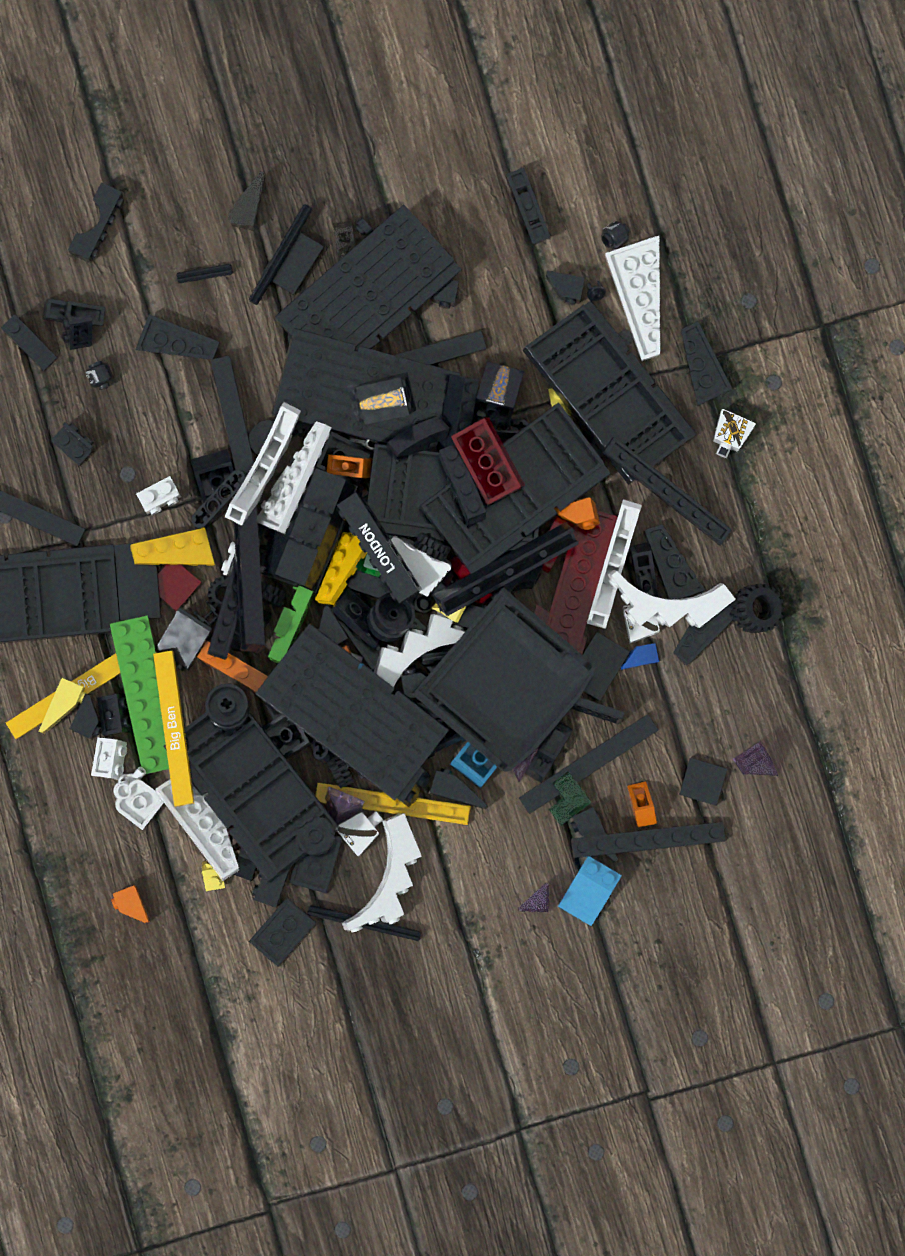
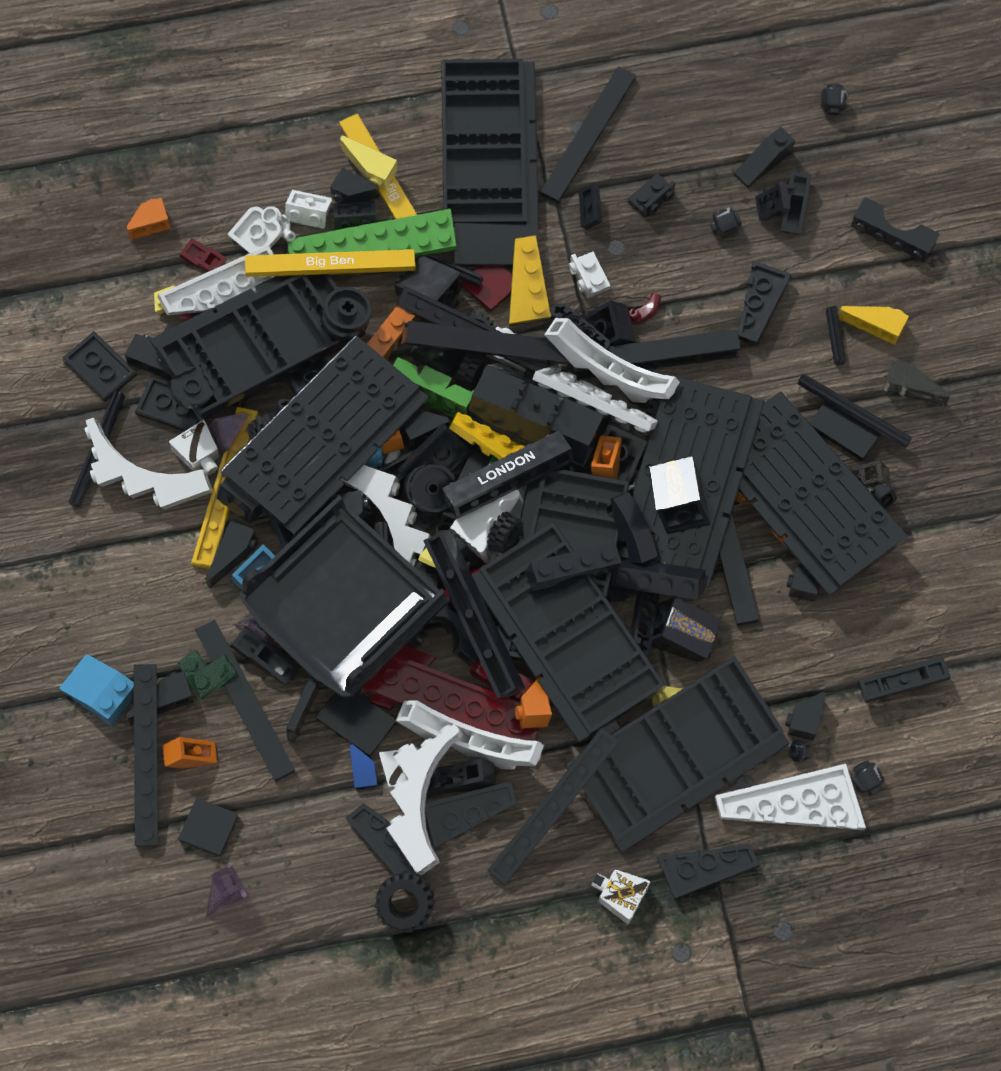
camera: 95 degrees right, 15 degrees down
(90, 499) = (590, 206): none -> black plate
(165, 850) = (202, 257): none -> dark red slope
(166, 615) = (466, 275): none -> black axle
(190, 233) = (879, 321): none -> yellow slope
(193, 442) = (647, 311): none -> dark red arm
(488, 461) = (598, 594): dark red slope -> none
(538, 901) = (91, 630): clear purple slope -> none

